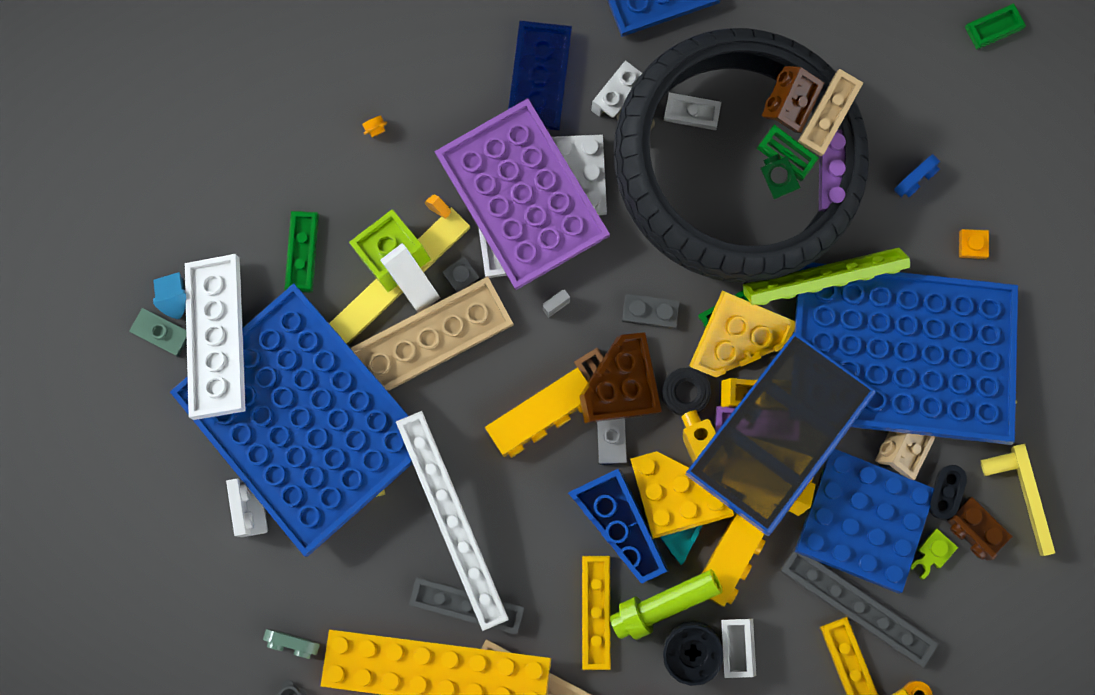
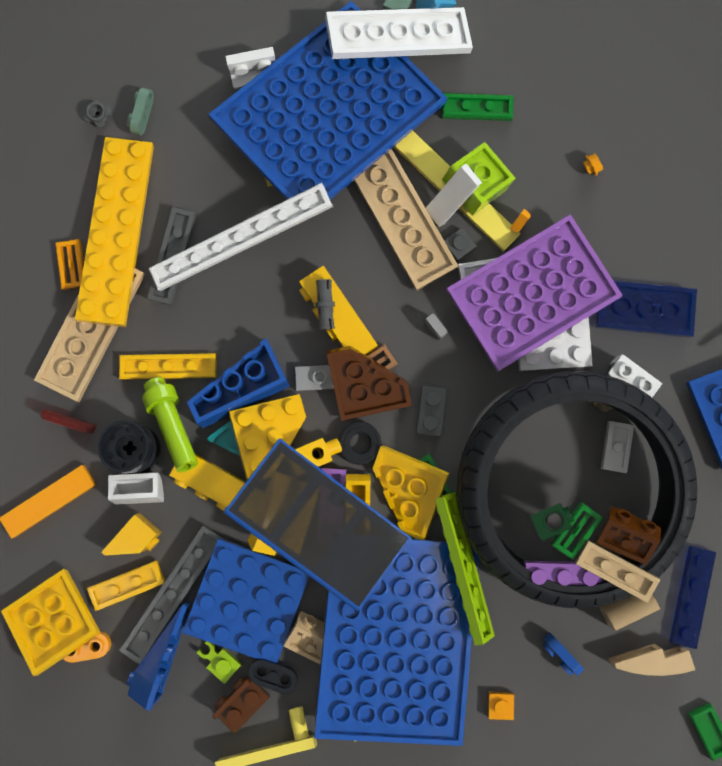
camera: 85 degrees right, 5 degrees up
(531, 423) = (325, 304): none -> dark grey pin
(795, 650) = (134, 537): none -> yellow slope
(854, 39) = (692, 597): none -> clear blue plate
(871, 106) = (628, 611): none -> tan brick
(922, 80) = (654, 661): none -> tan slope
(951, 630) = (152, 673): none -> blue wedge

